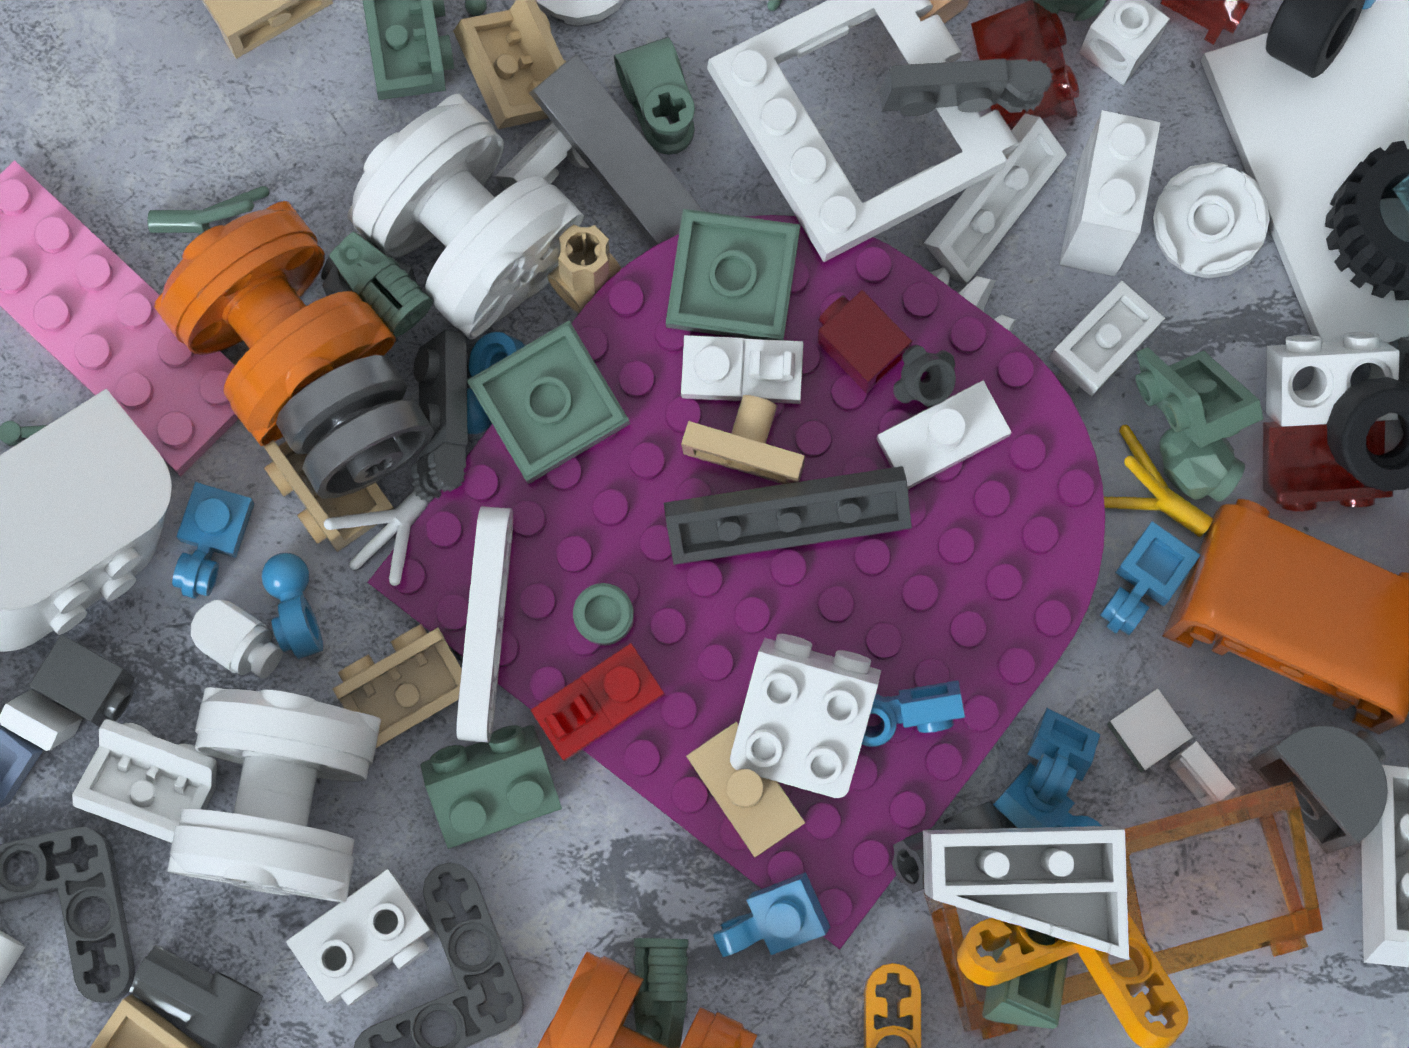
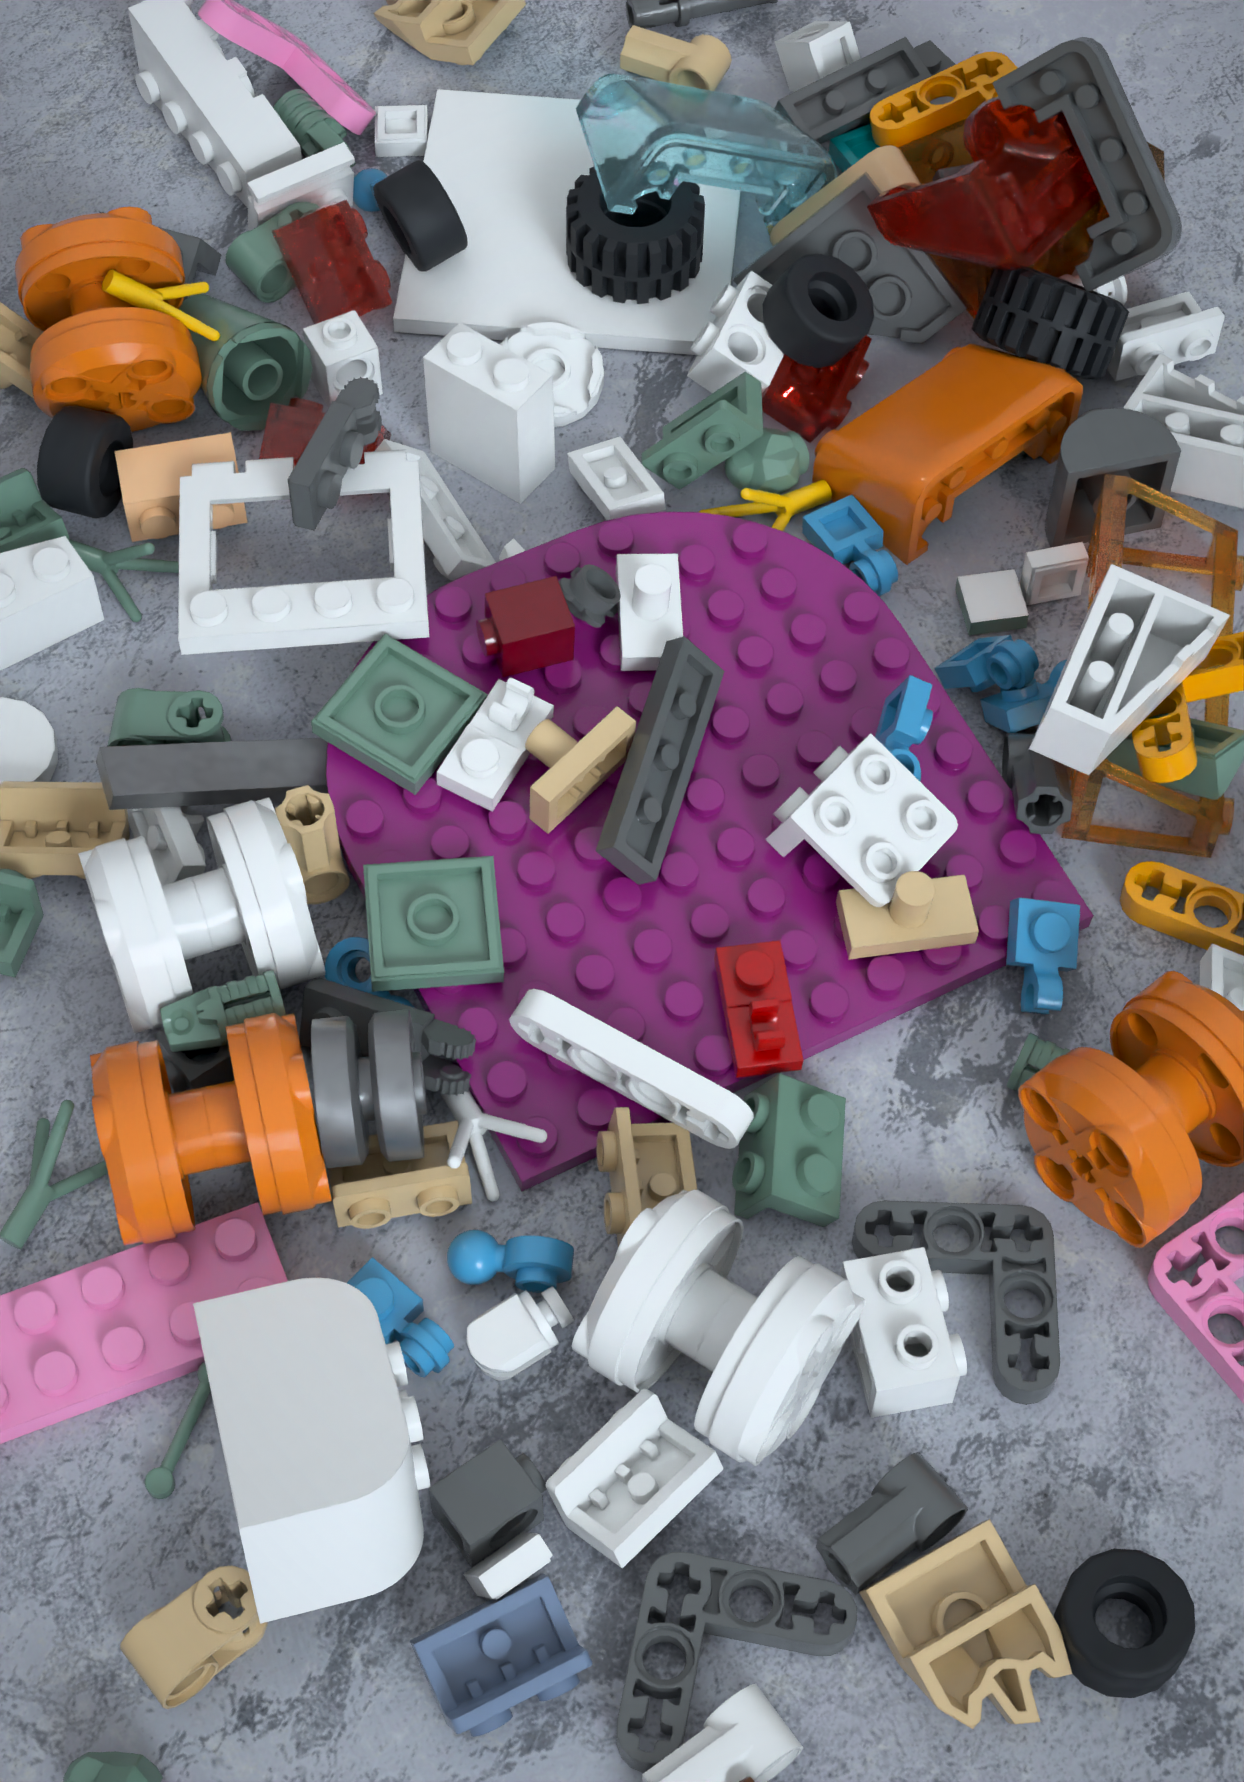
camera: 60 degrees left, 20 degrees down
(603, 614) = (672, 965): sand green tile -> none

